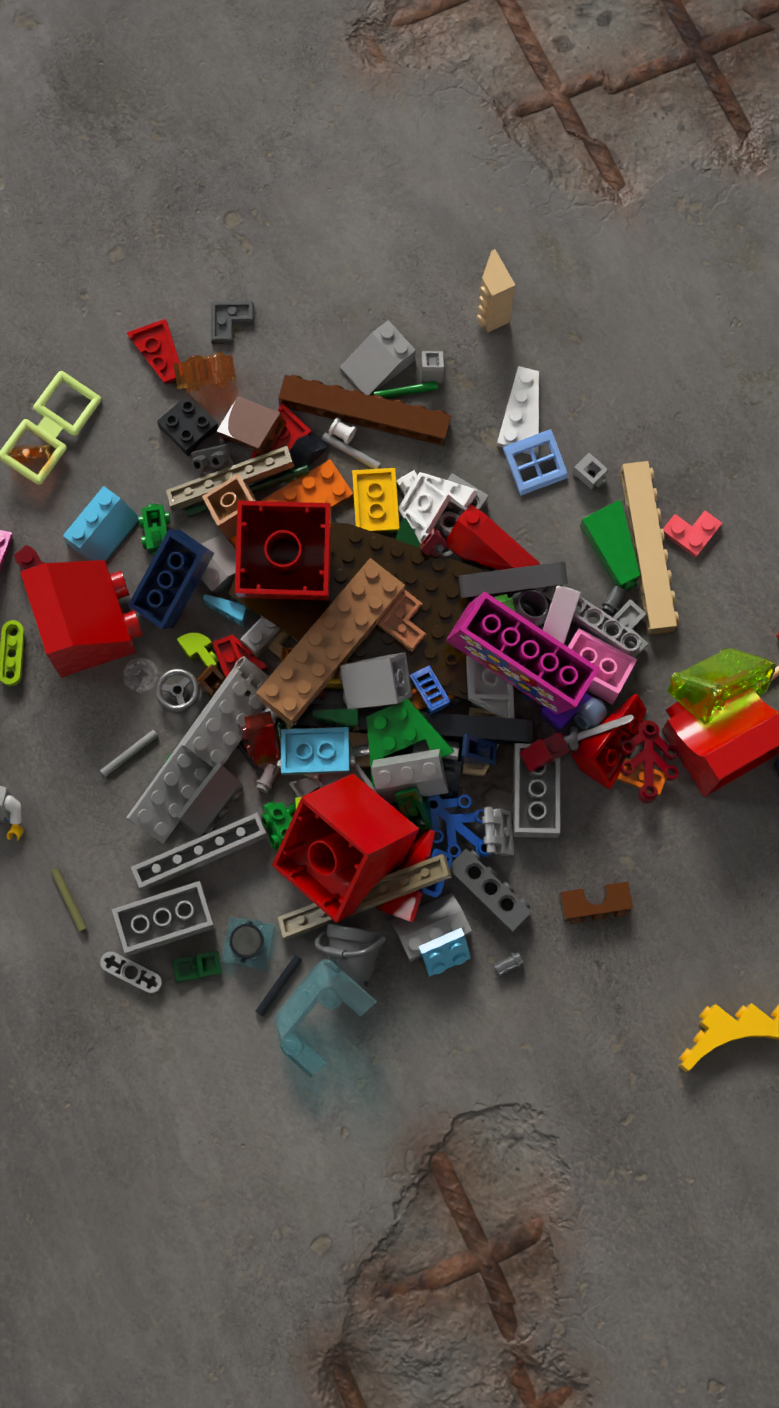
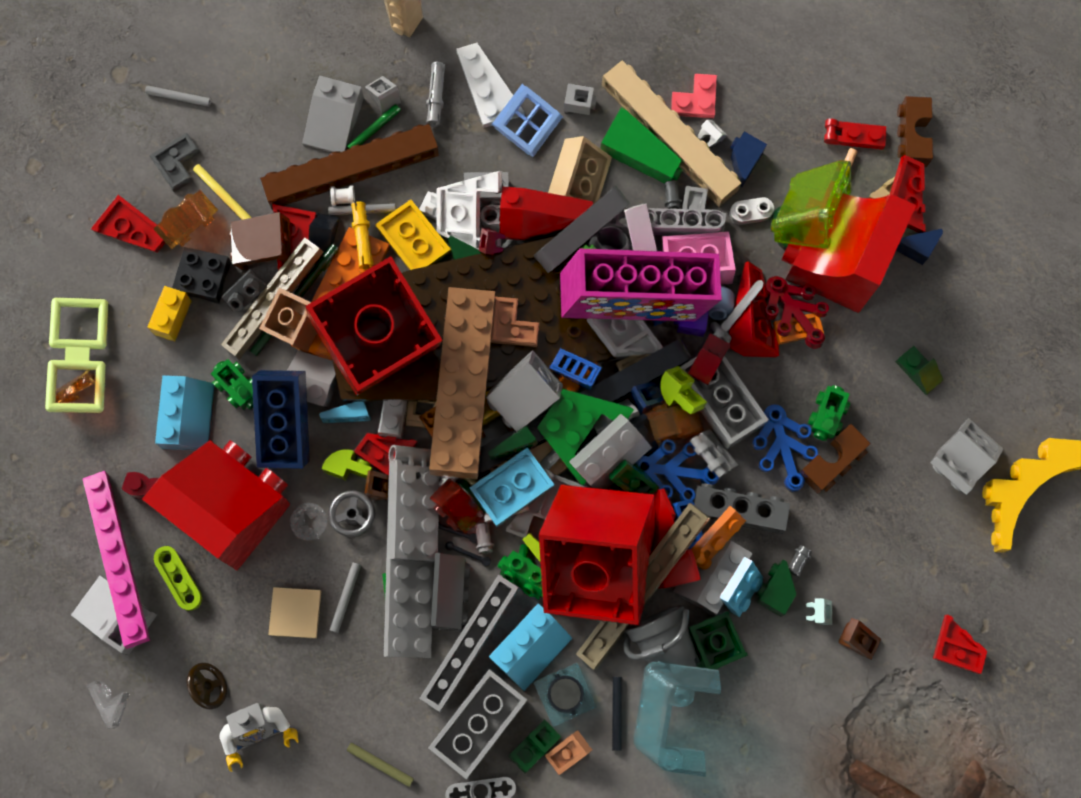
camera: 35 degrees left, 0 degrees up
(82, 739) = (295, 612): none -> tan tile
(142, 440) = (169, 313): none -> yellow brick
(218, 988) = (568, 752): none -> nougat slope
(245, 887) = (530, 647): none -> medium azure slope
(248, 367) = (208, 179): none -> light yellow bar
(257, 797) = (486, 561): none -> black hinge
(266, 266) = (170, 94): none -> light grey piece
(338, 465) = (361, 227): none -> yellow pin
(394, 982) = (716, 642): none -> dark green slope
(451, 898) = (717, 537): none -> orange plate
(469, 400) = (435, 101): none -> light grey pin
(474, 977) = (778, 591): none -> dark green slope
(484, 786) = (674, 423): none -> clear orange brick
(499, 1016) = (823, 611): none -> light aqua tile
(502, 760) = (677, 389): none -> lime brick
(513, 1058) = (859, 639): none -> reddish brown slope
(549, 532) = (580, 170): none -> tan slope
(563, 862) = (783, 444): none -> blue plant
(591, 1121) = (958, 647): none -> red wing
(611, 866) = (826, 421): none -> green brick
(672, 656) = (752, 211): none -> white plate
(686, 569) = (711, 128): none -> white tile
(699, 606) = (745, 155): none -> dark blue slope
(707, 971) = (966, 456): none -> light grey bracket
(721, 877) = (920, 370): none -> dark green slope

